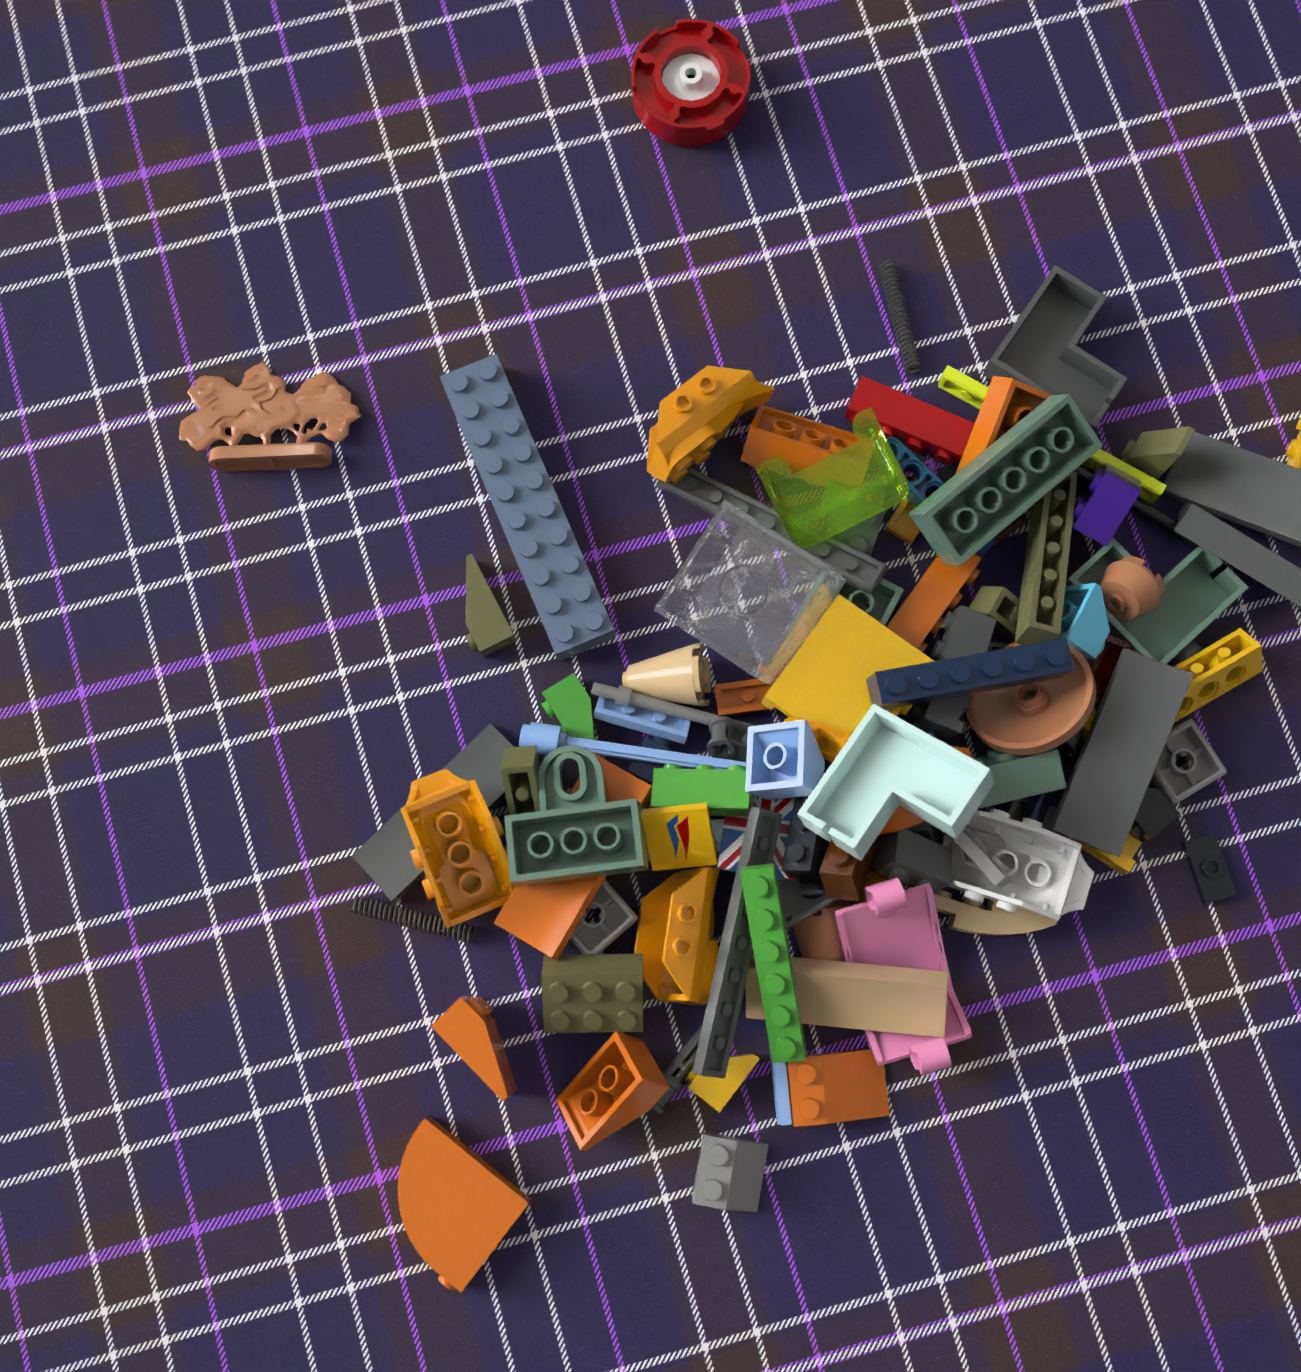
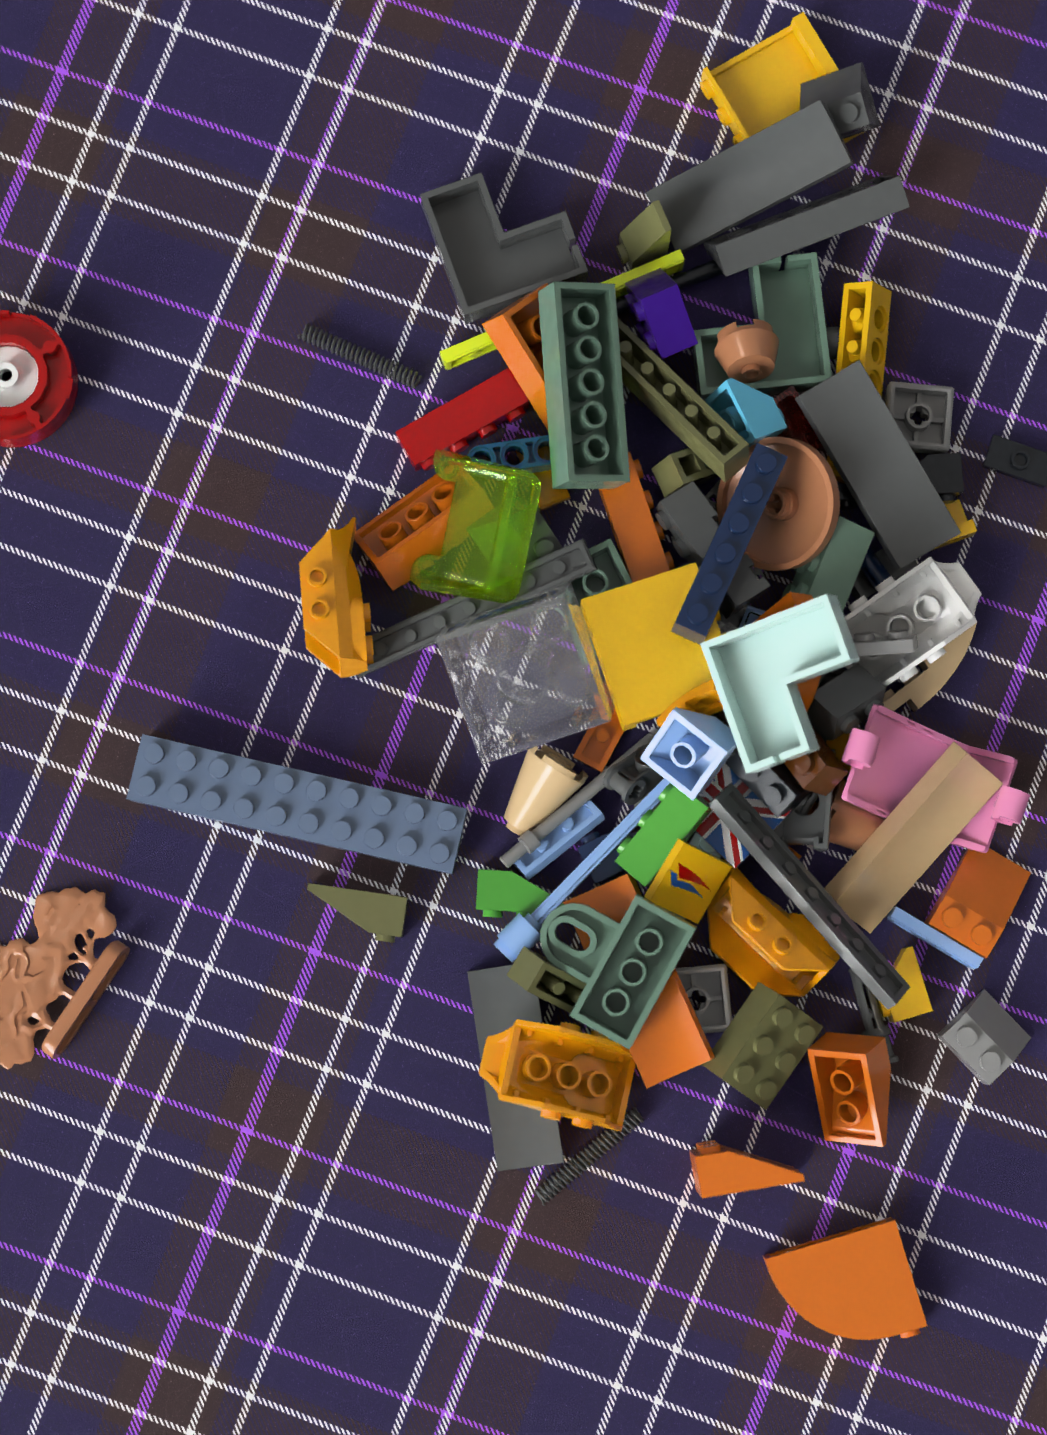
camera: 55 degrees left, 5 degrees up
(773, 963) = (847, 879): bright green plate -> none

